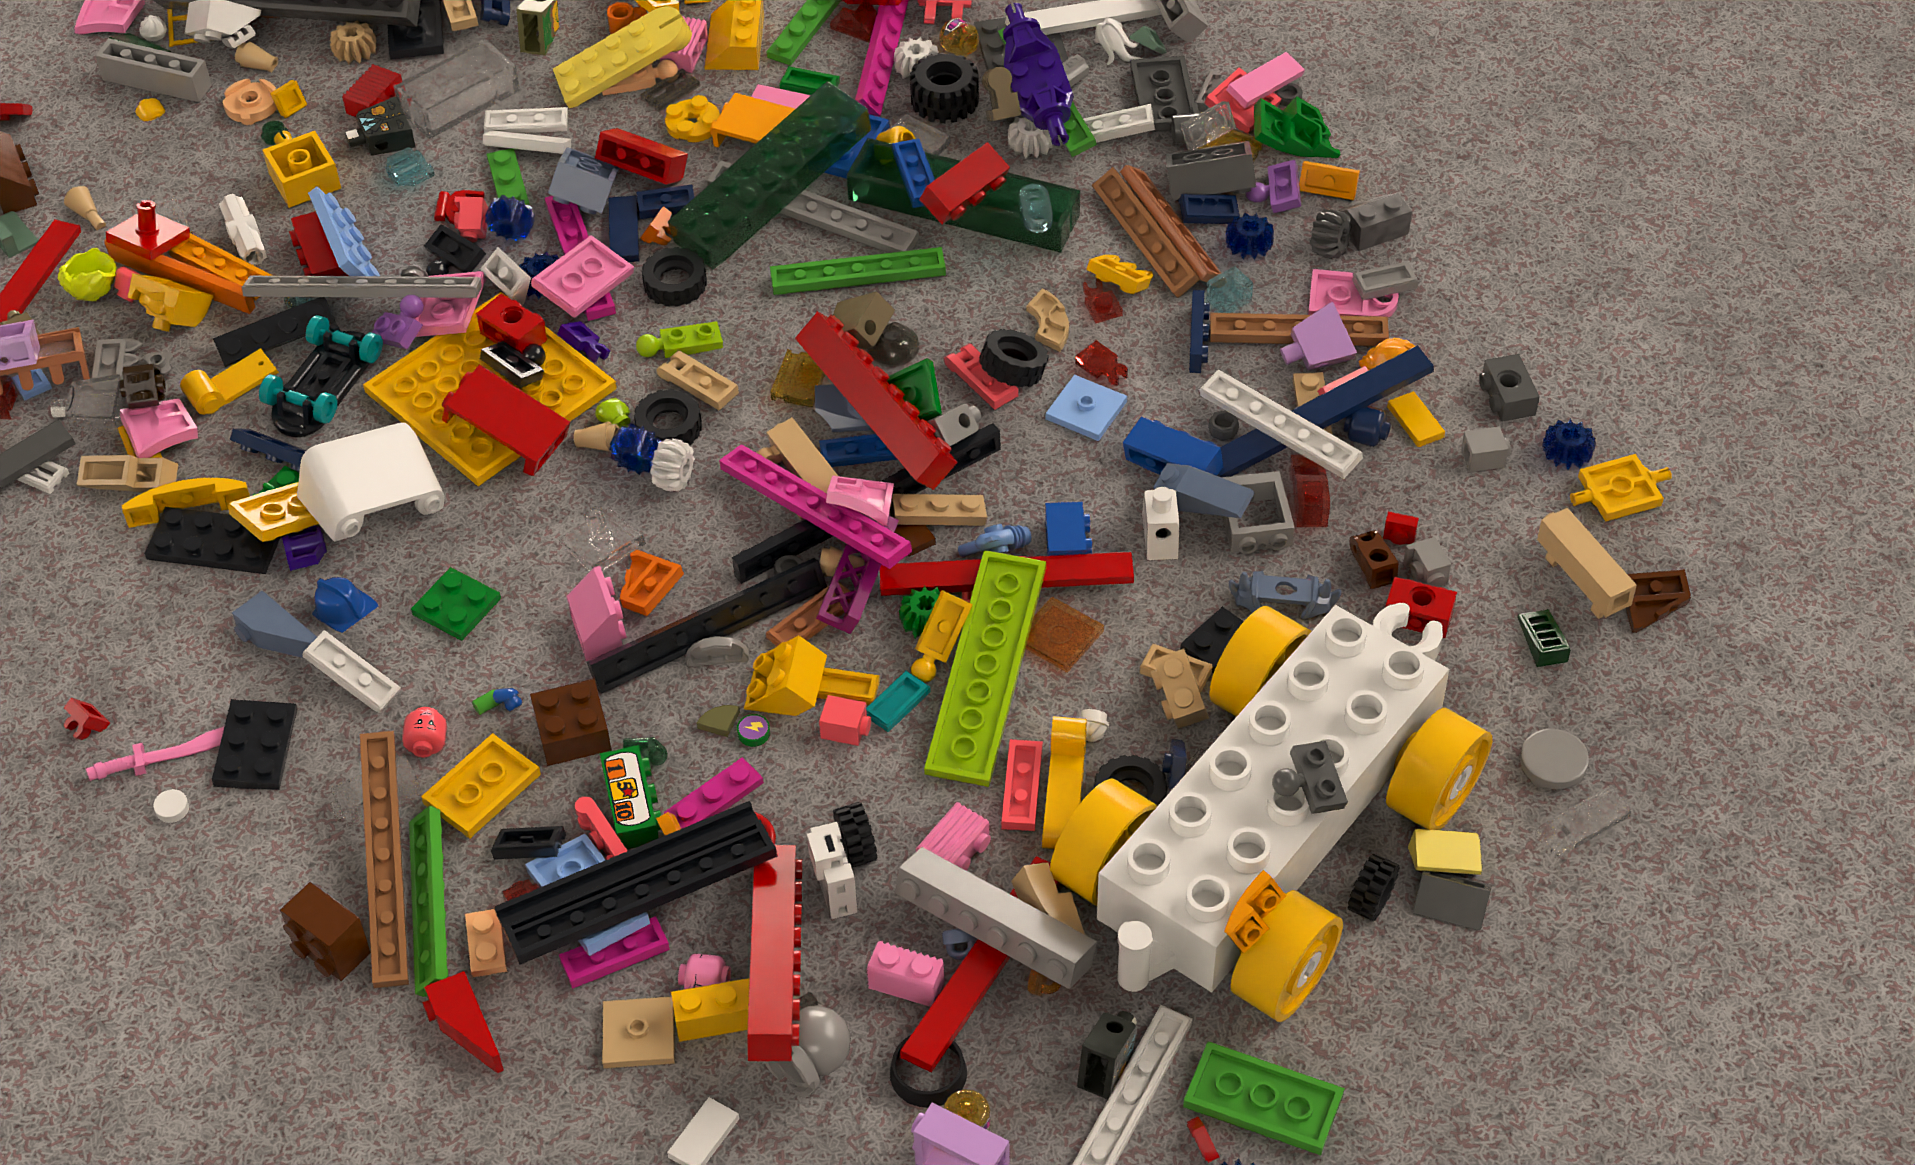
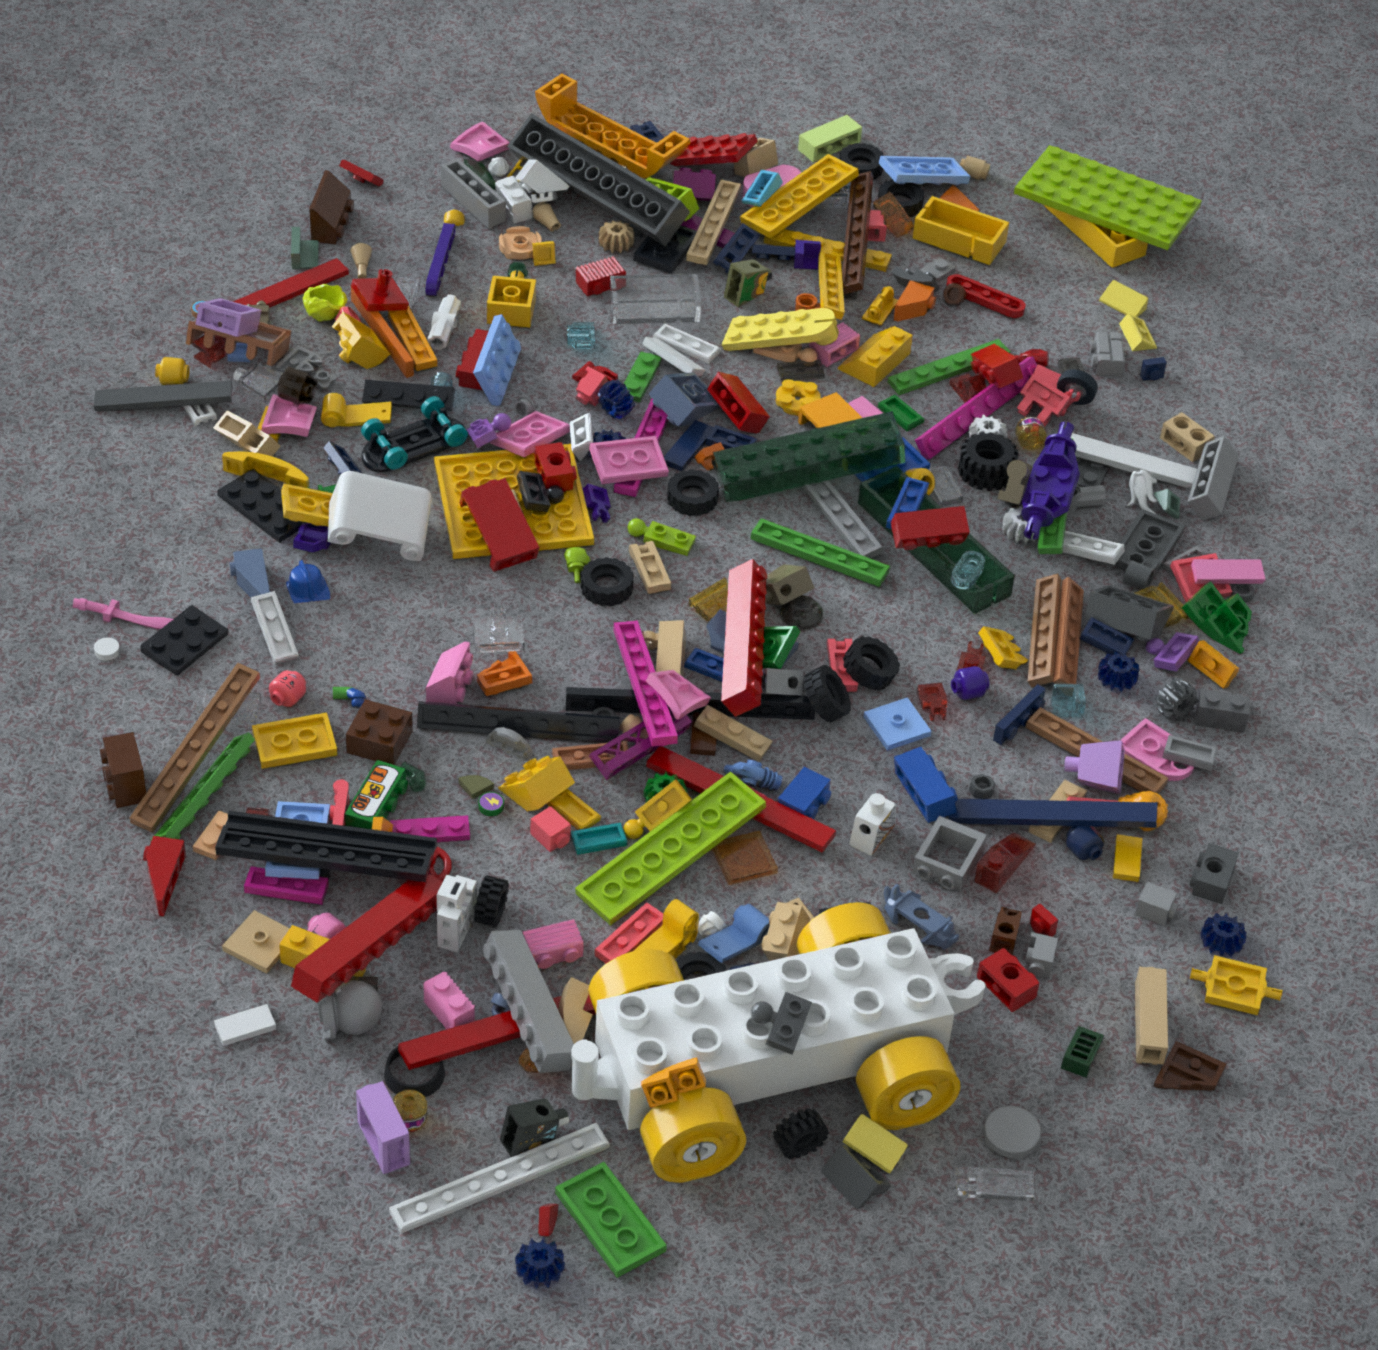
camera: 30 degrees right, 5 degrees down
(85, 717) = (100, 568): red tile -> none
(177, 162) = (440, 258): none -> dark purple beam
(216, 54) = (517, 201): none -> white brick
(361, 286) = (481, 394): light grey tile -> none
(382, 128) = (586, 301): pearl dark grey torso -> none
(452, 251) = (563, 402): black plate -> none
(456, 603) = (376, 623): green plate -> none
(528, 842) = (291, 790): black tile -> none
(596, 436) = (555, 569): tan cone -> none
(634, 448) = (567, 587): clear blue gear -> none
(672, 465) = (581, 609): white gear -> none
(1002, 413) = (827, 693): none -> black tyre
(1052, 320) = (926, 655): tan tile -> none
(1124, 325) = (970, 683): none -> dark purple head
(1129, 717) = (744, 933): none -> medium blue door
(1204, 492) = (916, 816): sand blue slope -> none
(1208, 125) = (1151, 580): clear plate -> none
(1281, 424) = (1016, 805): white tile -> none

